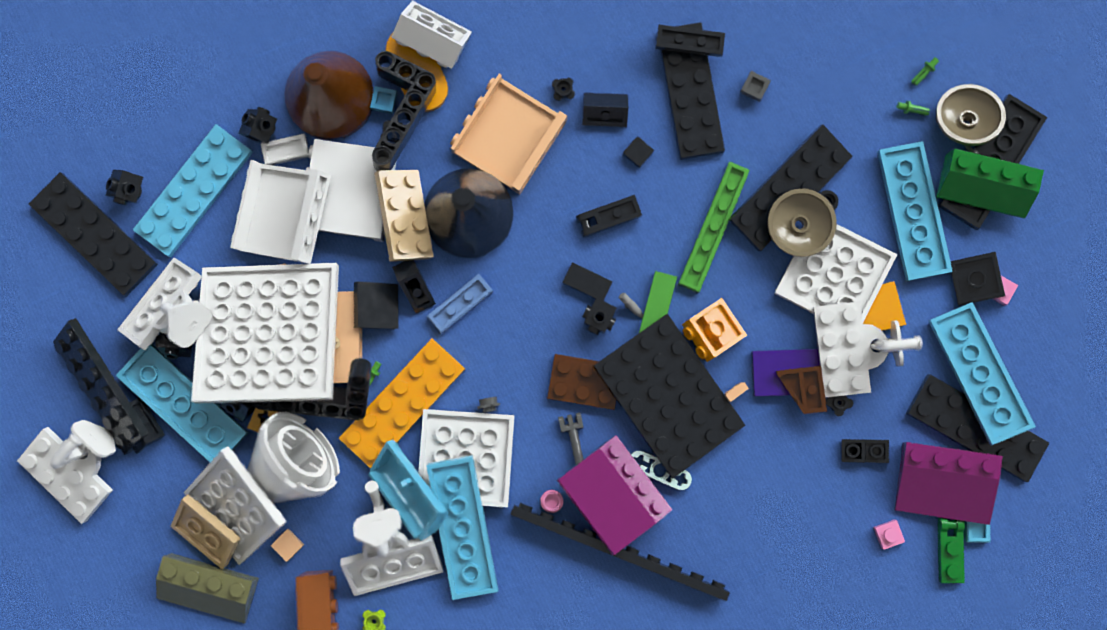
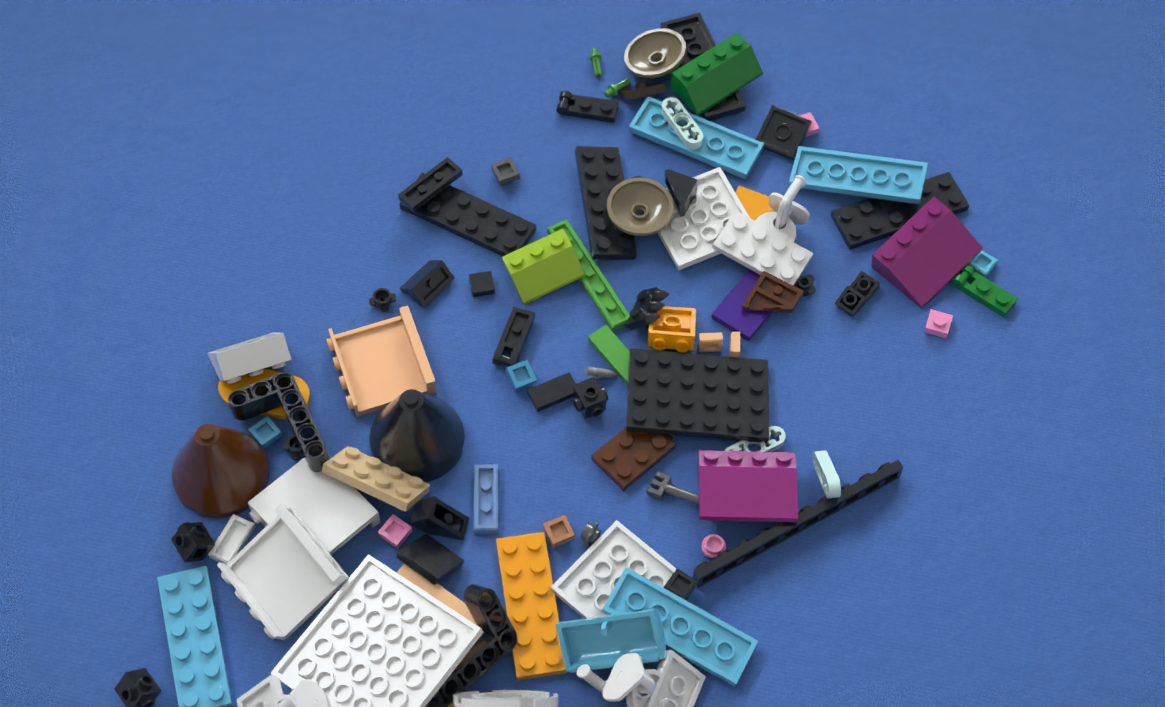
camera: 50 degrees left, 25 degrees down
(379, 261) = (395, 531): none -> bright pink plate
(473, 378) = (558, 531): none -> nougat plate
(495, 503) = (681, 584): none -> black tile
(580, 247) = (520, 375): none -> dark azure plate
(673, 547) = (826, 474): none -> light aqua beam
(687, 189) = (543, 266): none -> lime slope
(715, 297) = (646, 307): none -> black plate
(724, 369) = (710, 342): none -> light nougat tile
(846, 243) = (681, 189): none -> black slope
(873, 100) = (587, 107): none -> black plate
(916, 208) = (682, 132): none -> light aqua beam
(925, 132) = (642, 89): none -> dark brown plate

